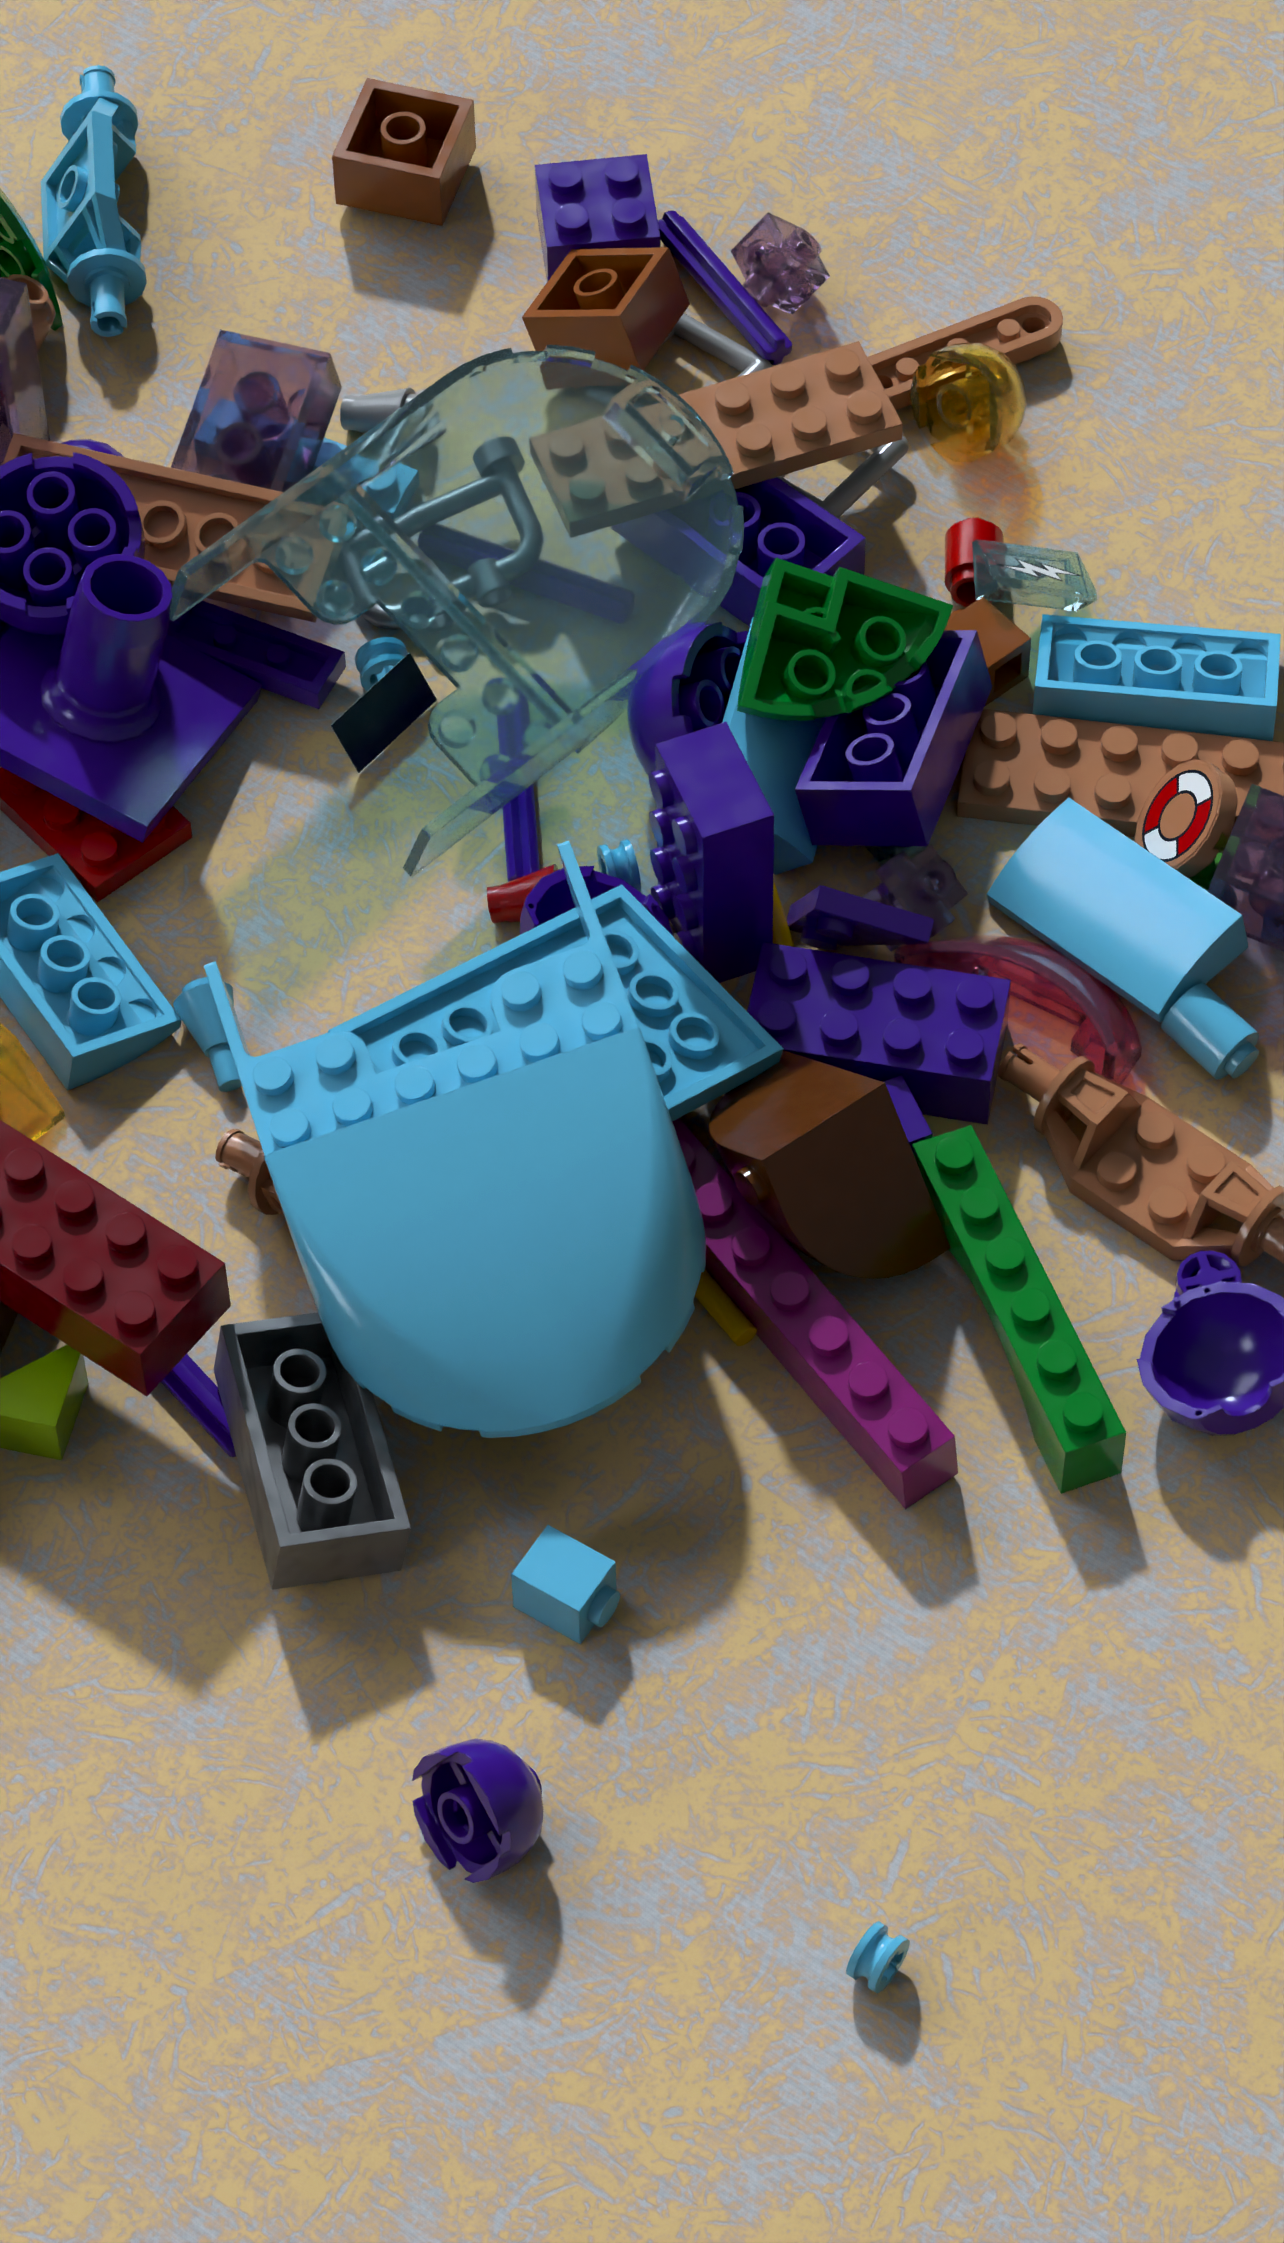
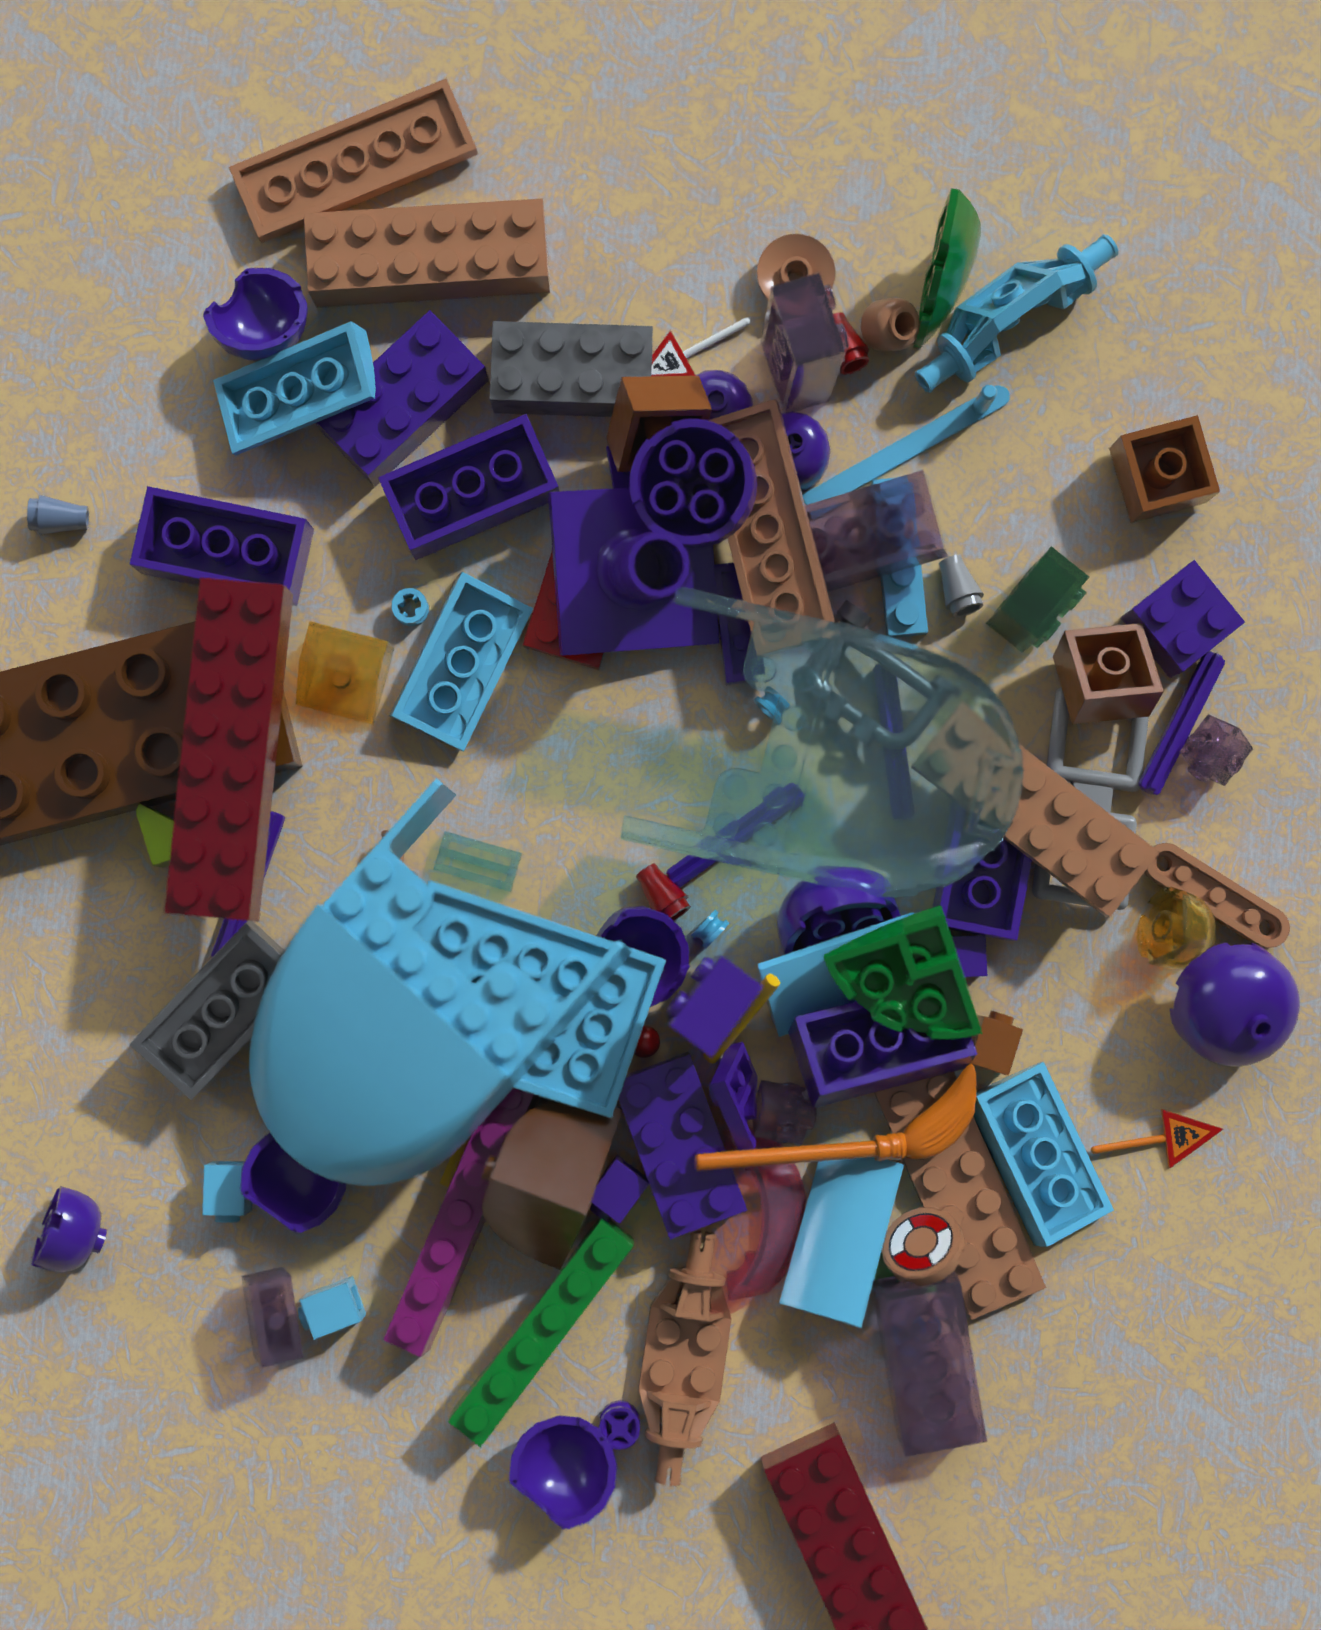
camera: 50 degrees right, 30 degrees up
(176, 355) = (988, 401): none -> medium azure piece
(202, 1019) = (474, 765): medium azure cone -> none
(383, 712) = (735, 725): black sticker -> none
(459, 311) = (1041, 596): none -> clear green brick
(607, 1478) = (287, 1188): none -> dark purple cylinder
(779, 1607) = (272, 1316): none -> clear purple brick
(818, 1542) = (331, 1308): none -> medium azure brick
(877, 1957) = (106, 1482): medium azure bush -> none
(959, 556) = (1057, 1000): red brick -> none
(1031, 576) = (1061, 1045): clear light blue slope -> none
(1049, 764) = (921, 1139): none -> orange piece
(1103, 377) = (1235, 1004): none -> dark purple cylinder
(1211, 1032) = (792, 1336): medium azure brick -> none
(1235, 532) = (1181, 1137): none -> piece

